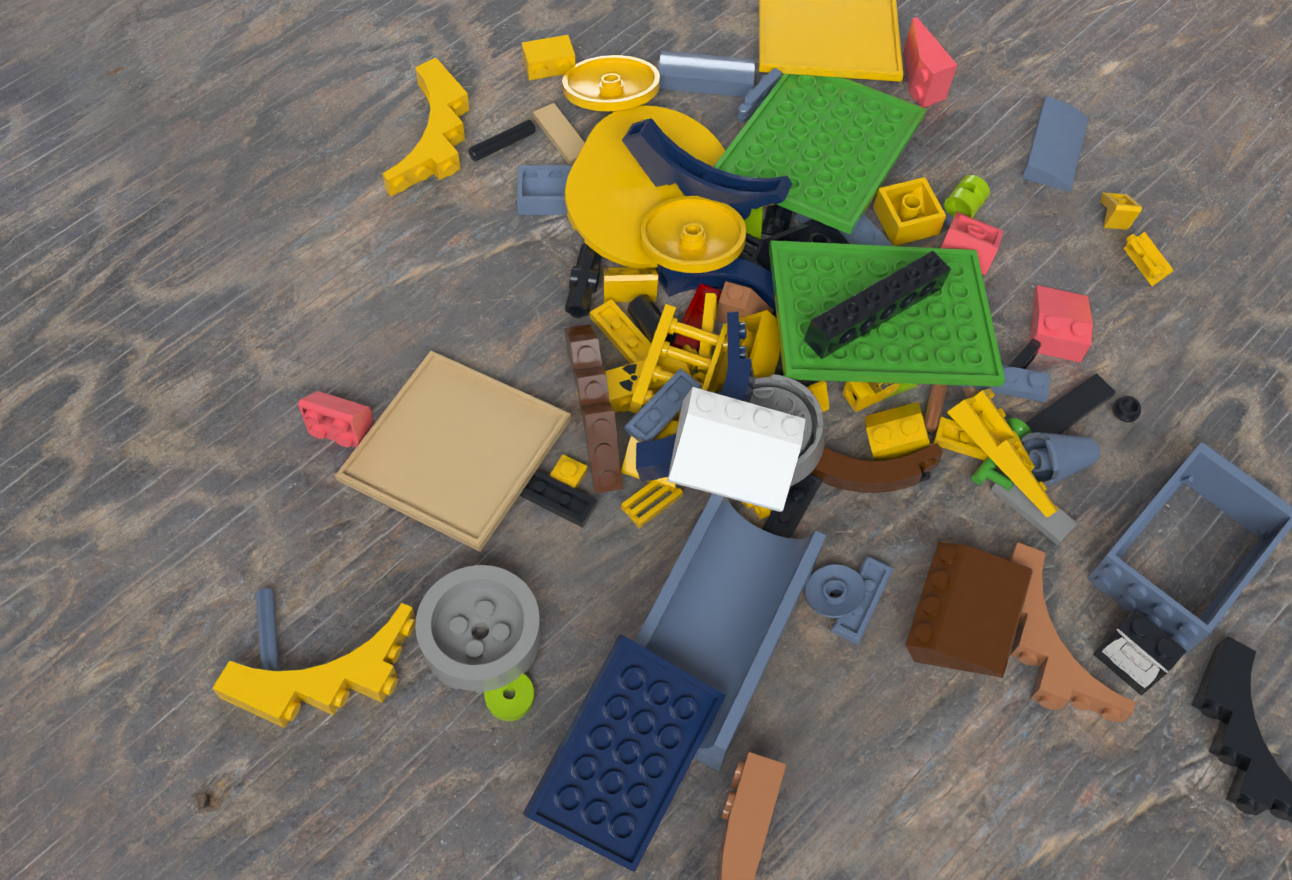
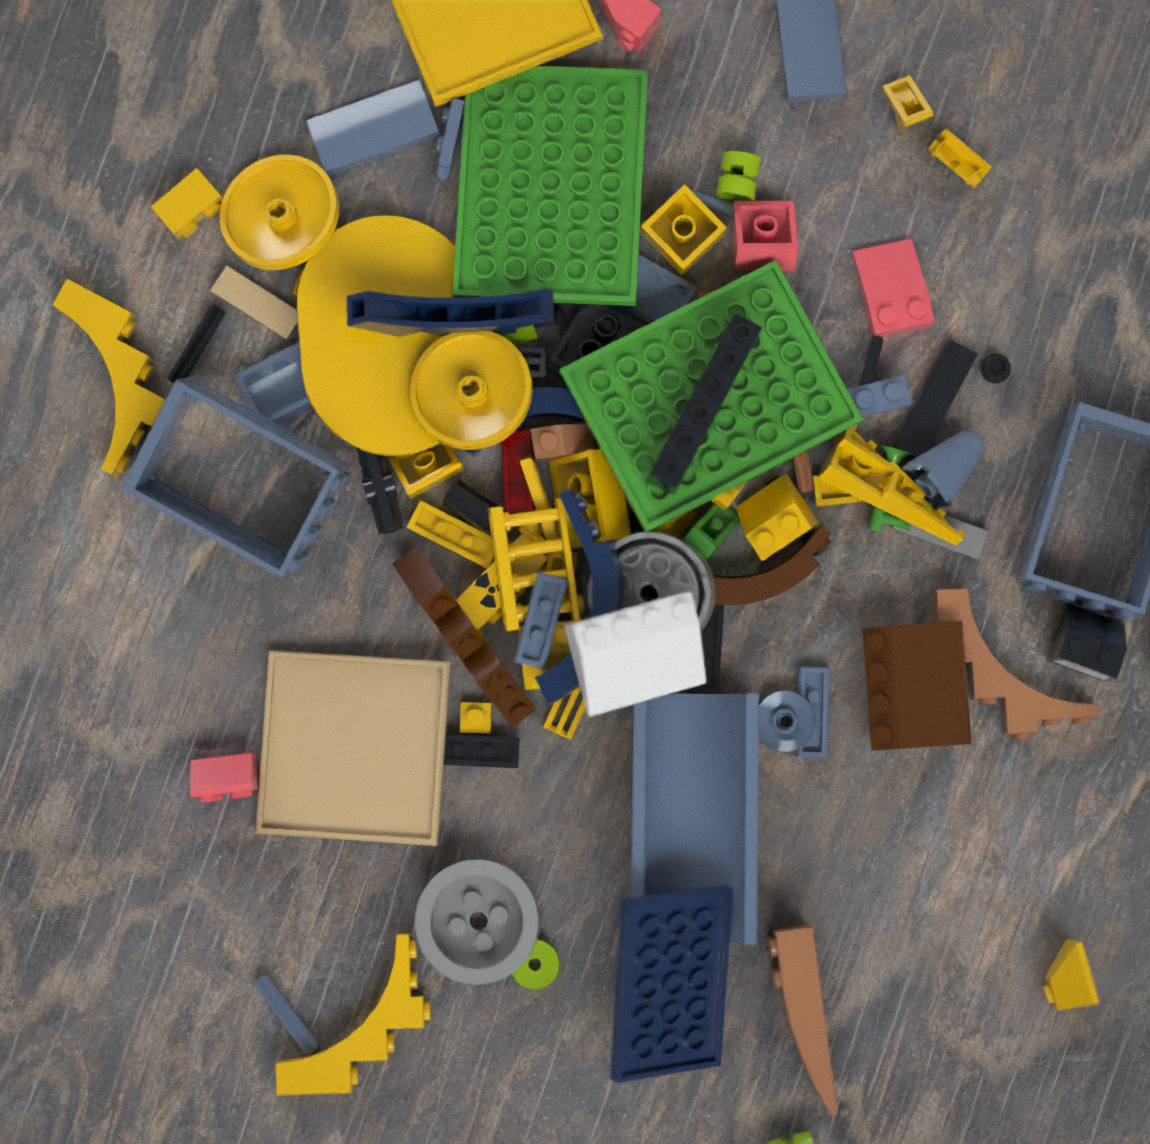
camera: 20 degrees left, 25 degrees up
(444, 165) = (143, 484): none -> sand blue door
(839, 420) = (712, 529): none -> bright green slope

